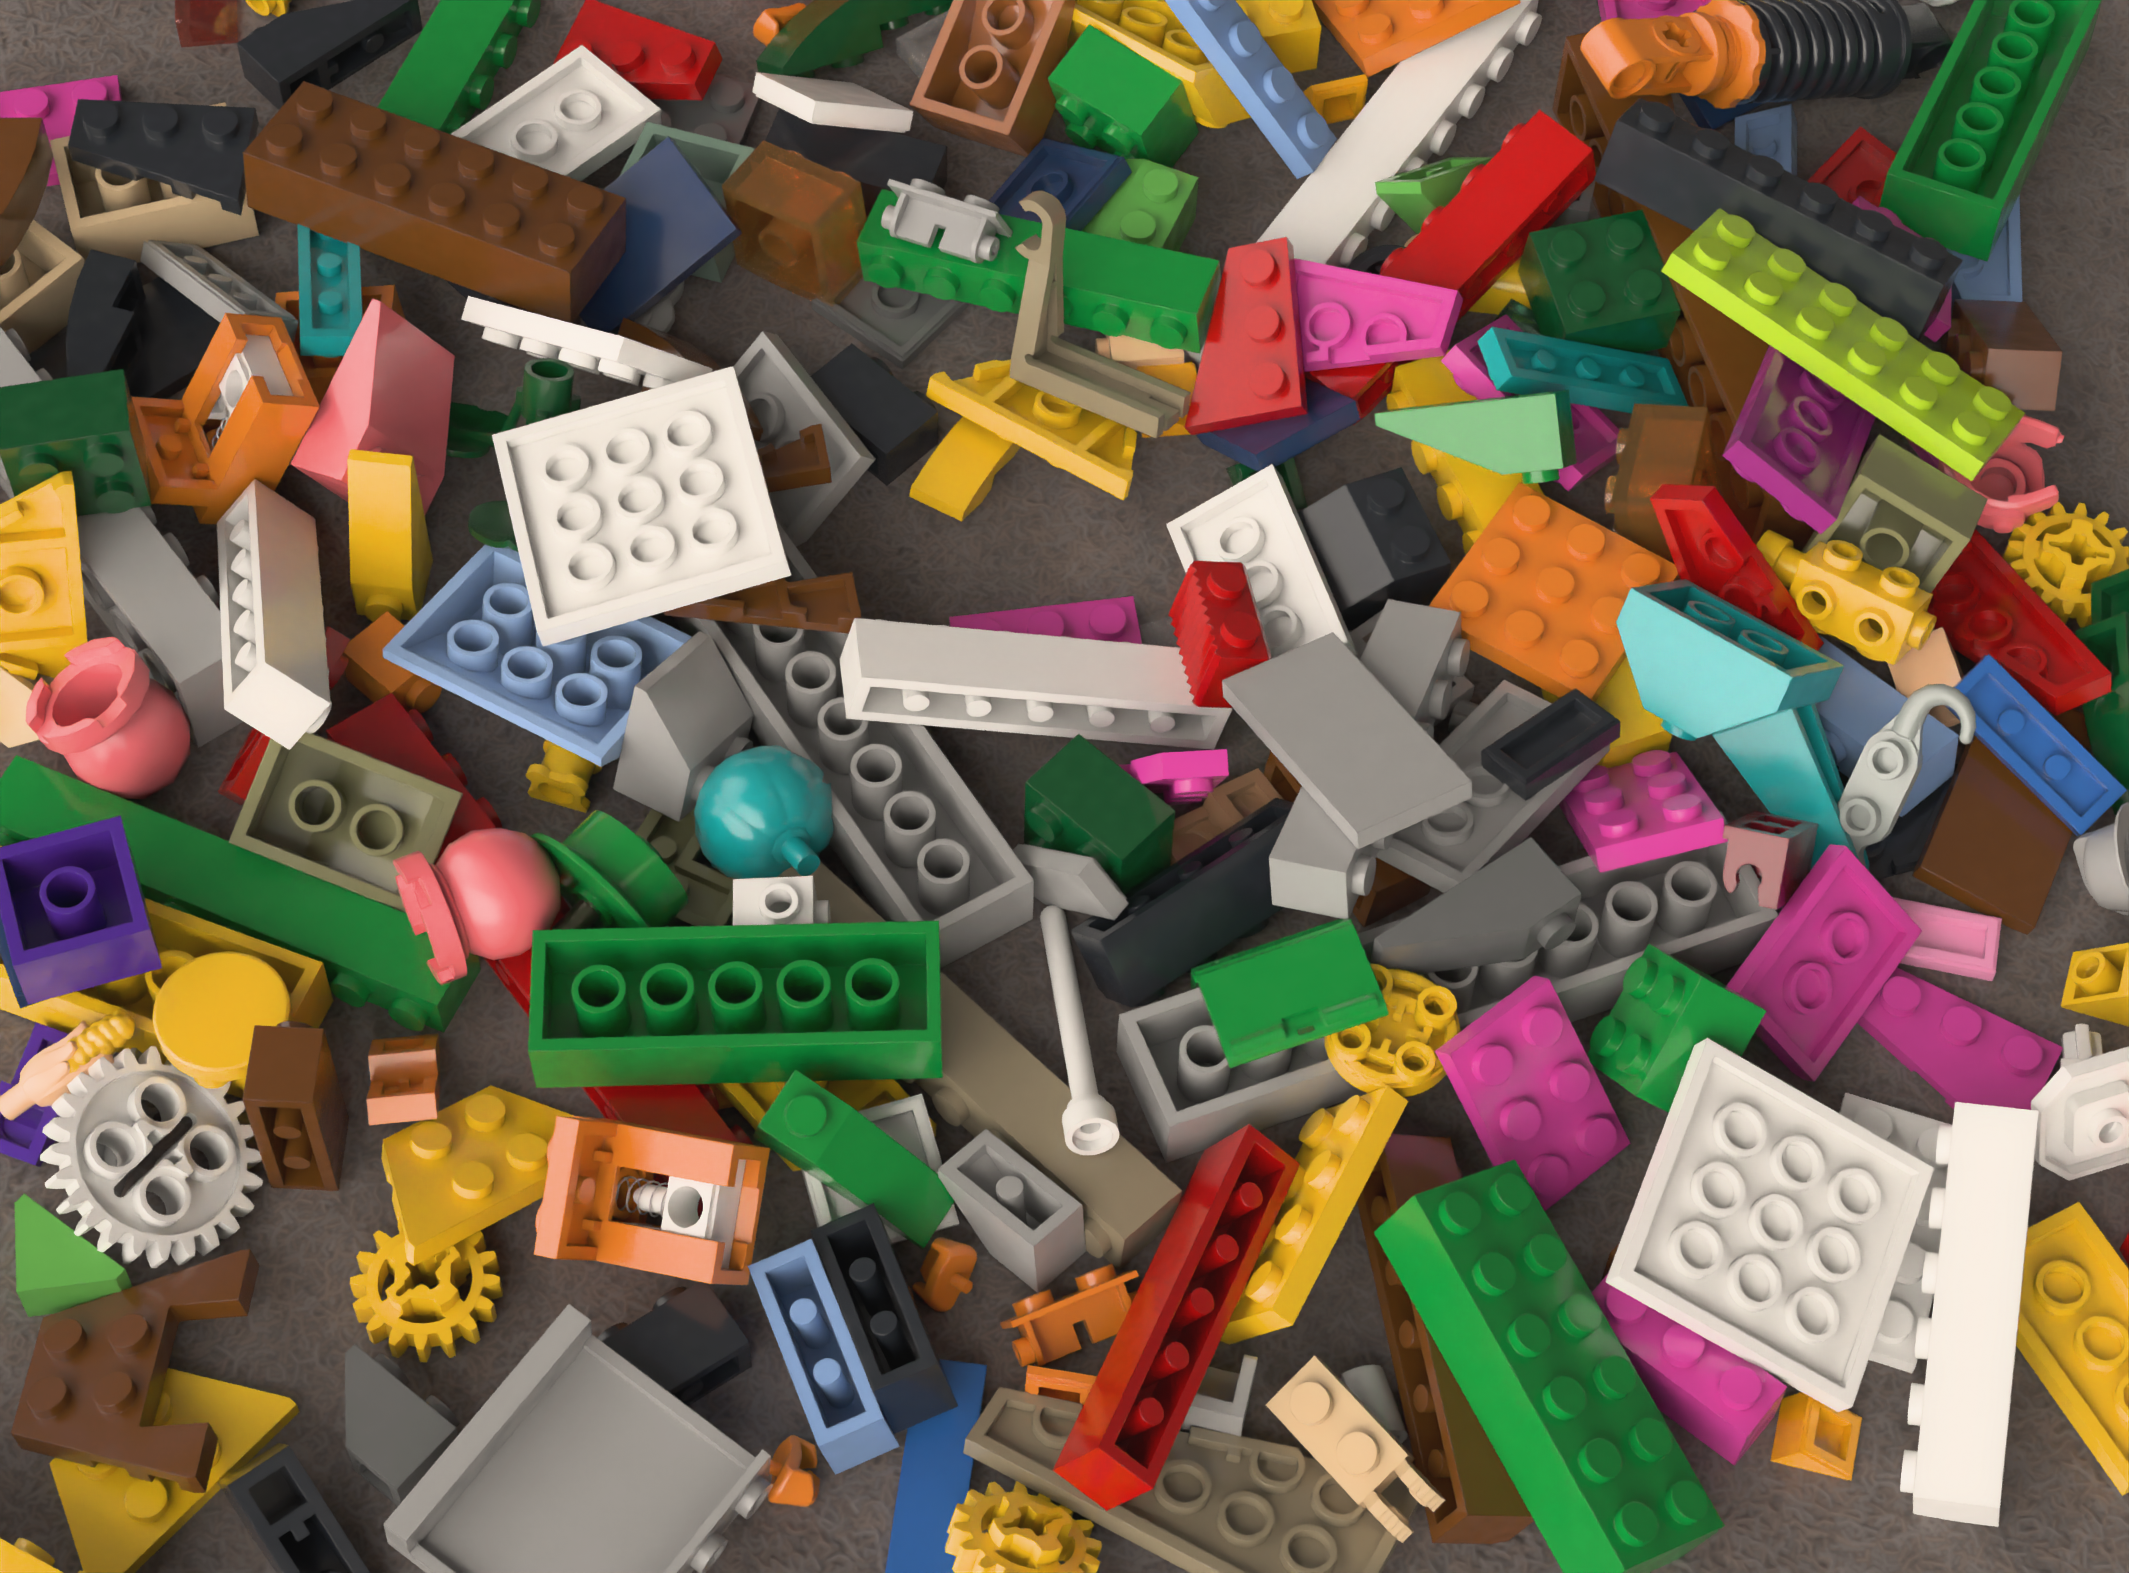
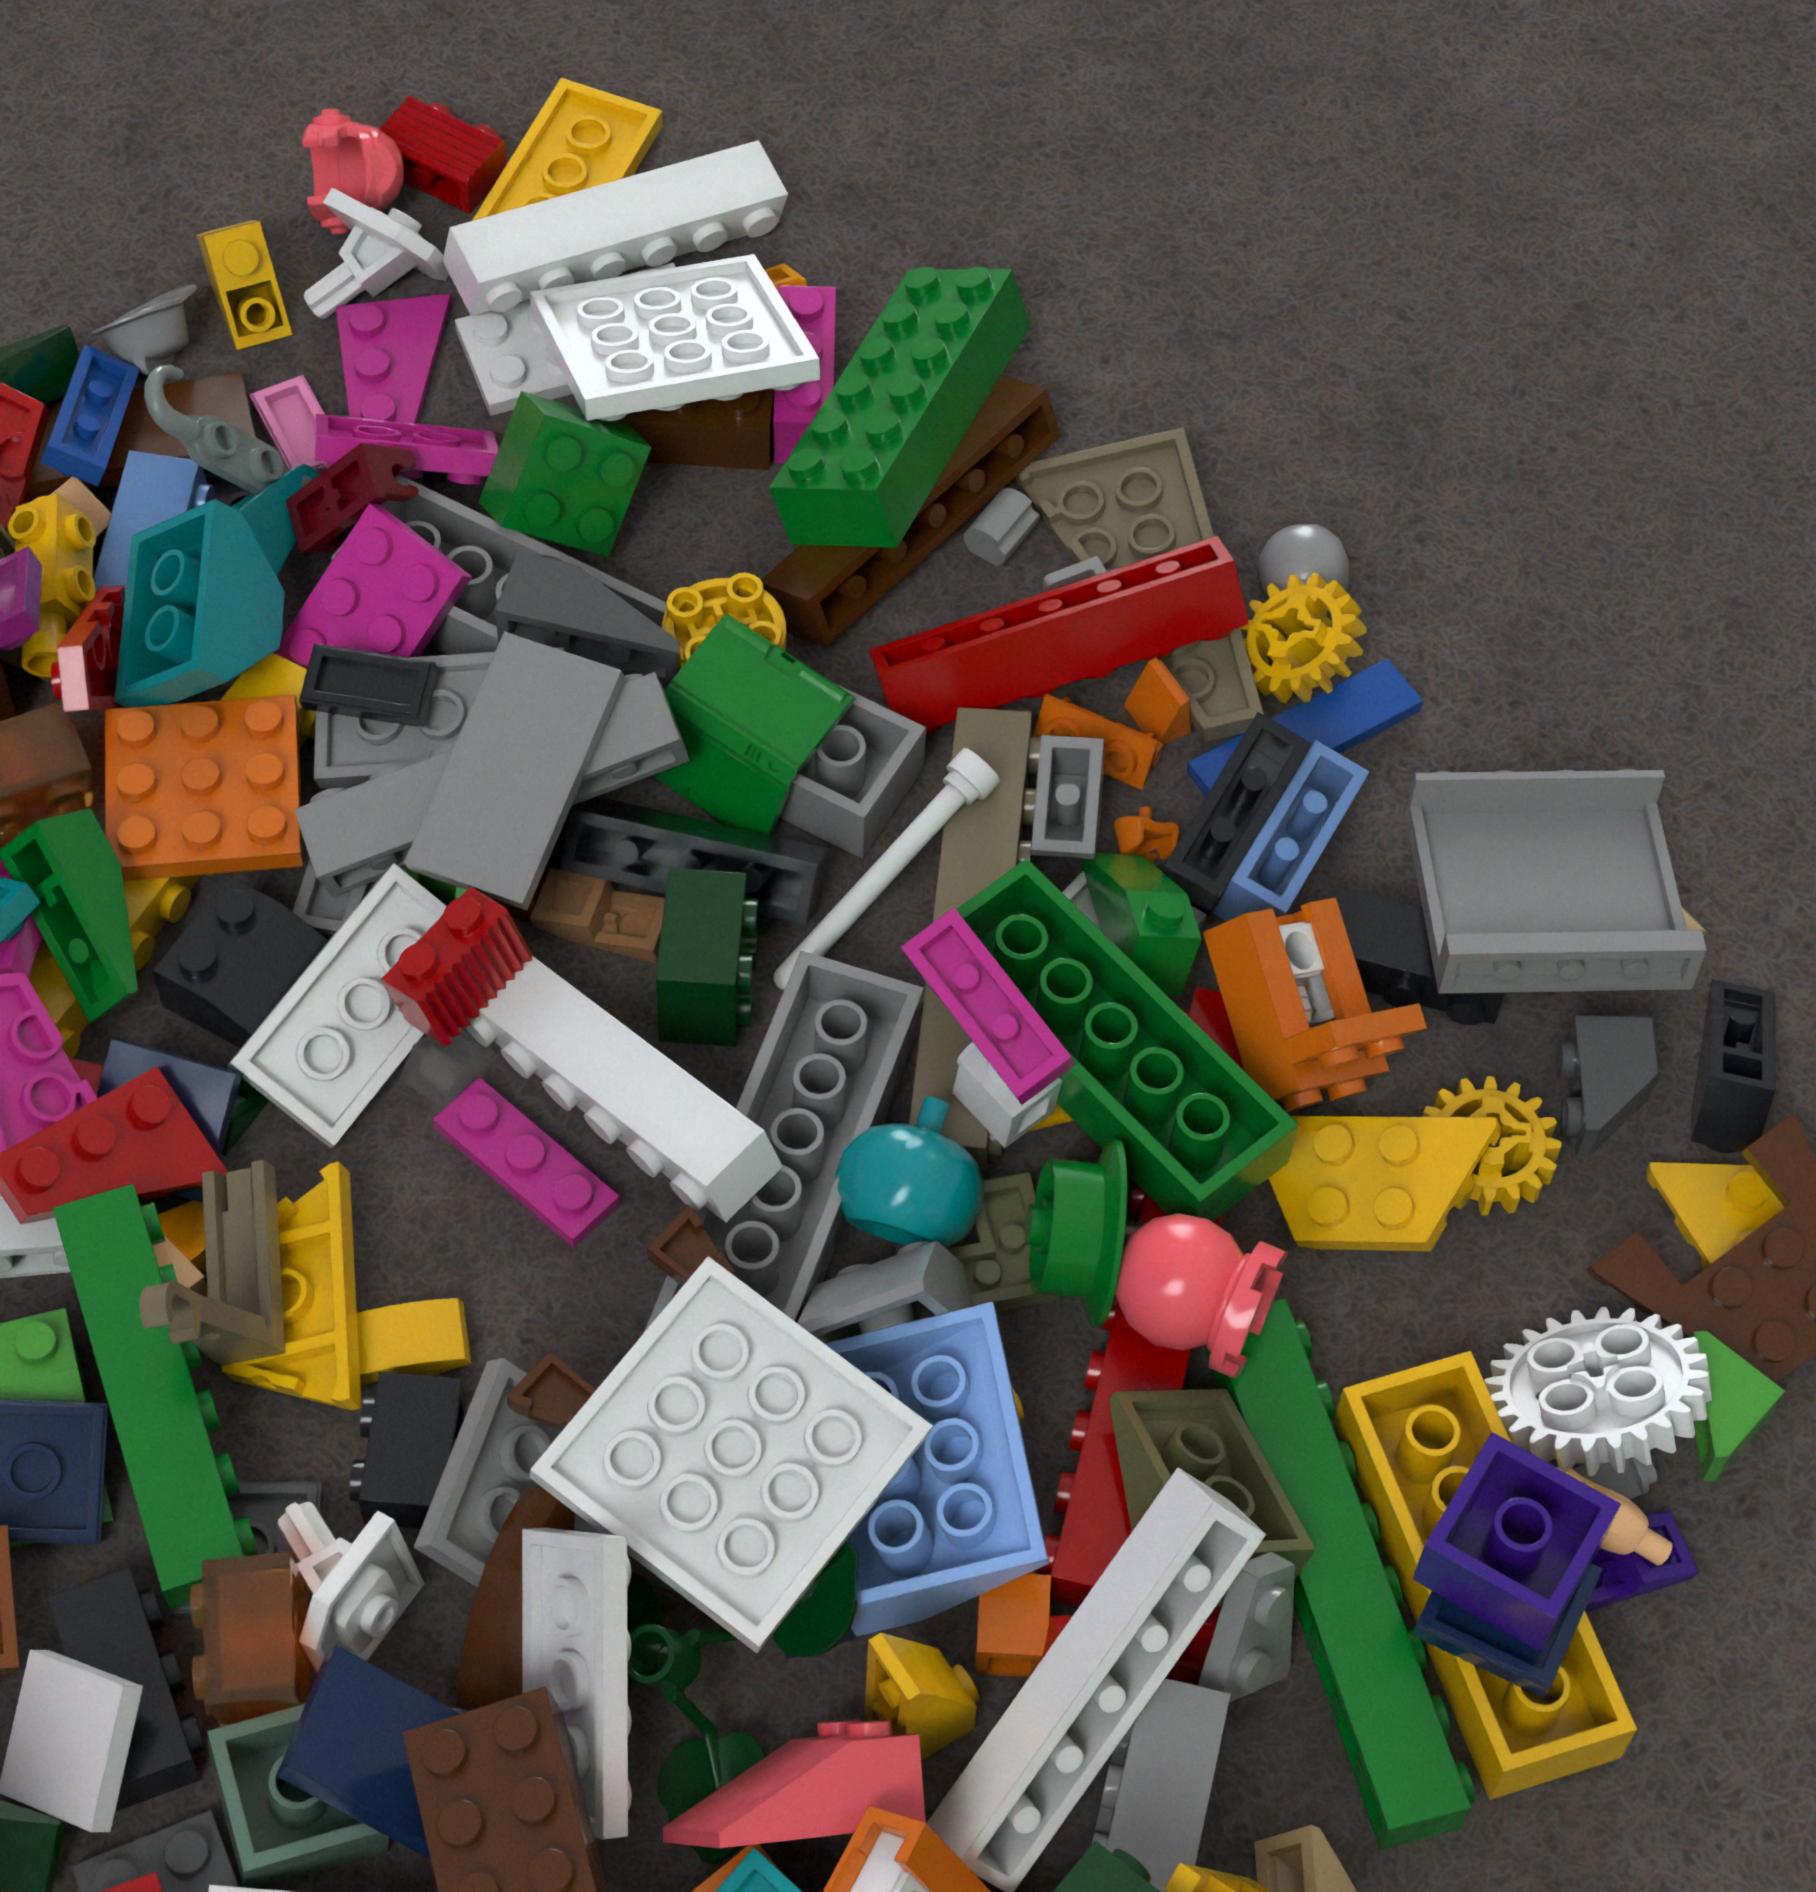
camera: 130 degrees left, 0 degrees up
(112, 720) = (1299, 1762): coral tile -> none
(210, 1013) = (1461, 1390): yellow tile -> none
(217, 749) = (1253, 1629): none -> light grey wing
(296, 1106) = (1477, 1287): reddish brown brick -> none
(404, 1079) = (1357, 1289): orange slope -> none
(789, 1481) = (1379, 823): orange piece -> none
(800, 300) = (353, 1586): none -> white piece
(823, 893) = (988, 1006): none -> dark pink plate
(967, 224) = (169, 1447): light grey hinge -> none
(1071, 881) = (770, 945): light grey tile -> none
(1181, 775) = (616, 928): dark pink wing -> none
(1334, 1167) = (847, 613): yellow plate -> none
(1351, 1443) = (1047, 498): tan hinge -> none
(1534, 1091) = (686, 540): dark pink plate -> none

